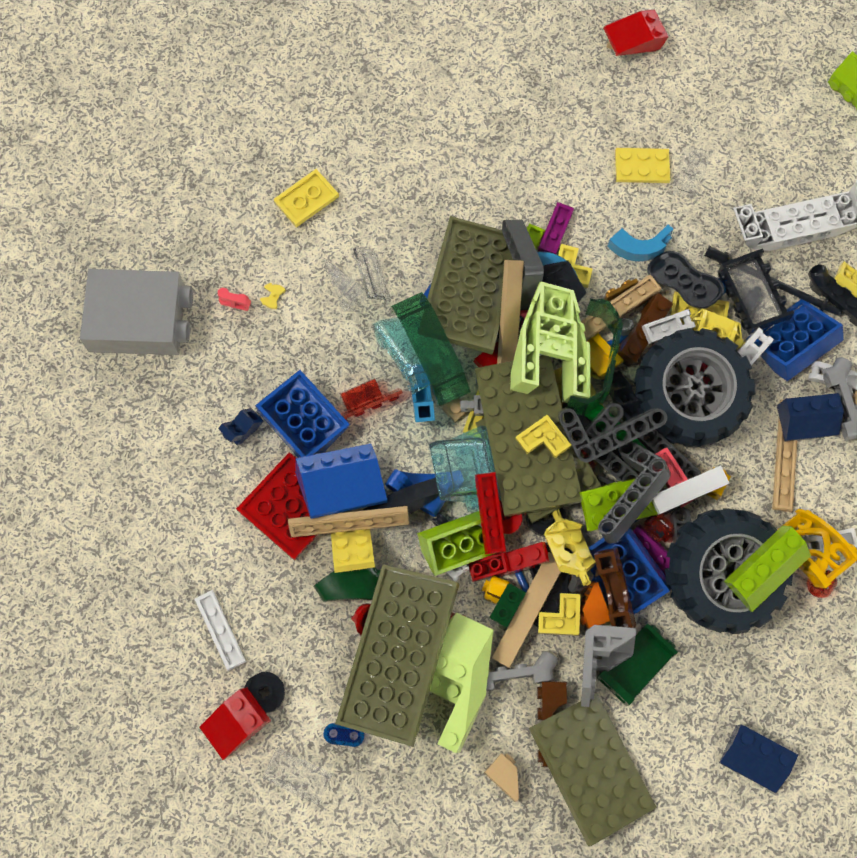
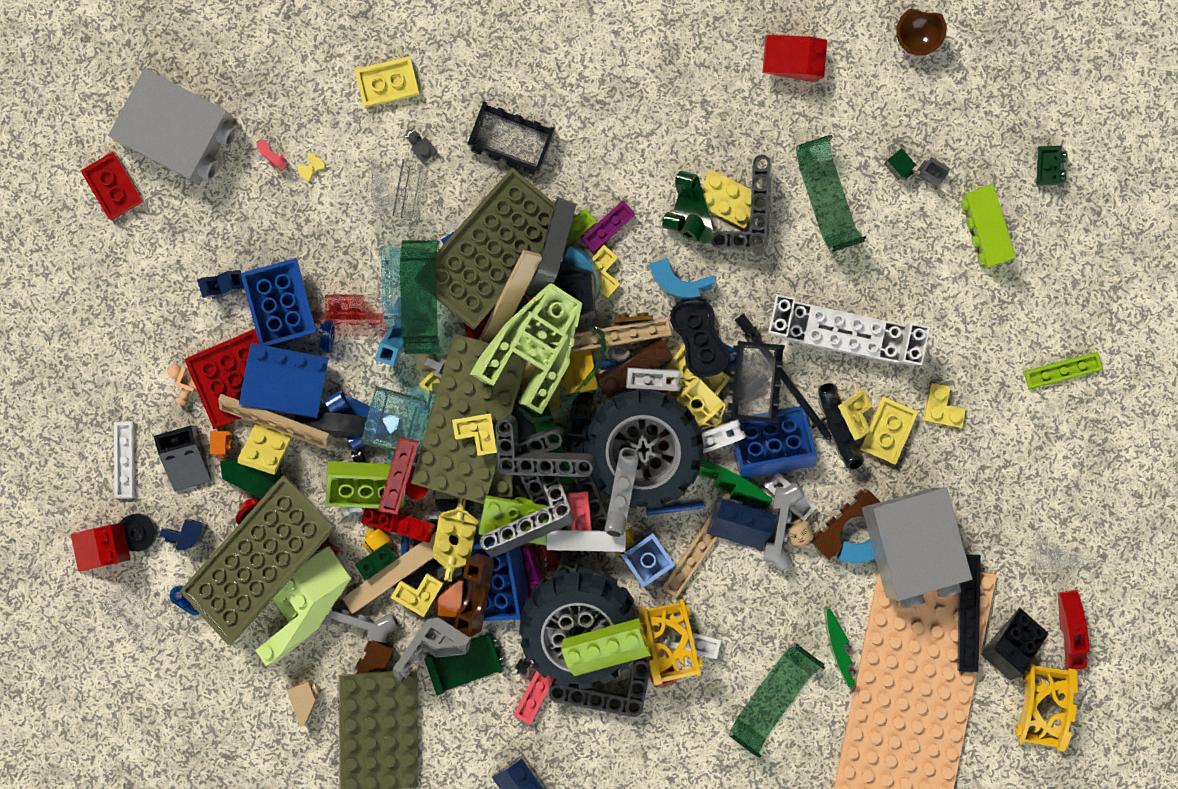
camera: 30 degrees right, 15 degrees up
(98, 389) = (112, 186): none -> red plate
(246, 529) = (184, 381): none -> light nougat piece
(277, 598) = (183, 457): none -> black slope
(307, 569) = (221, 443): none -> orange brick
(318, 671) = (189, 537): none -> dark blue brick
(360, 433) = (328, 336): none -> clear blue plate
(364, 238) = (423, 149): none -> dark grey plate
(436, 196) = (510, 138): none -> clear window
(617, 184) = (690, 211): none -> dark green panel
(674, 159) = (764, 212): none -> dark grey beam
(691, 640) = (522, 666): none -> black plate
(700, 426) = (621, 492): none -> light grey plate
(716, 661) = (533, 697): none -> coral plate
(720, 126) = (827, 195): none -> clear green windscreen
(744, 434) = (676, 508): none -> blue bar
(749, 486) = (647, 559): none -> light blue brick
(766, 77) = (900, 165): none -> dark green brick
(783, 631) = (606, 697): none -> dark grey beam
(788, 387) = (740, 488): none -> green slope
(796, 71) = (933, 172): none -> dark grey window

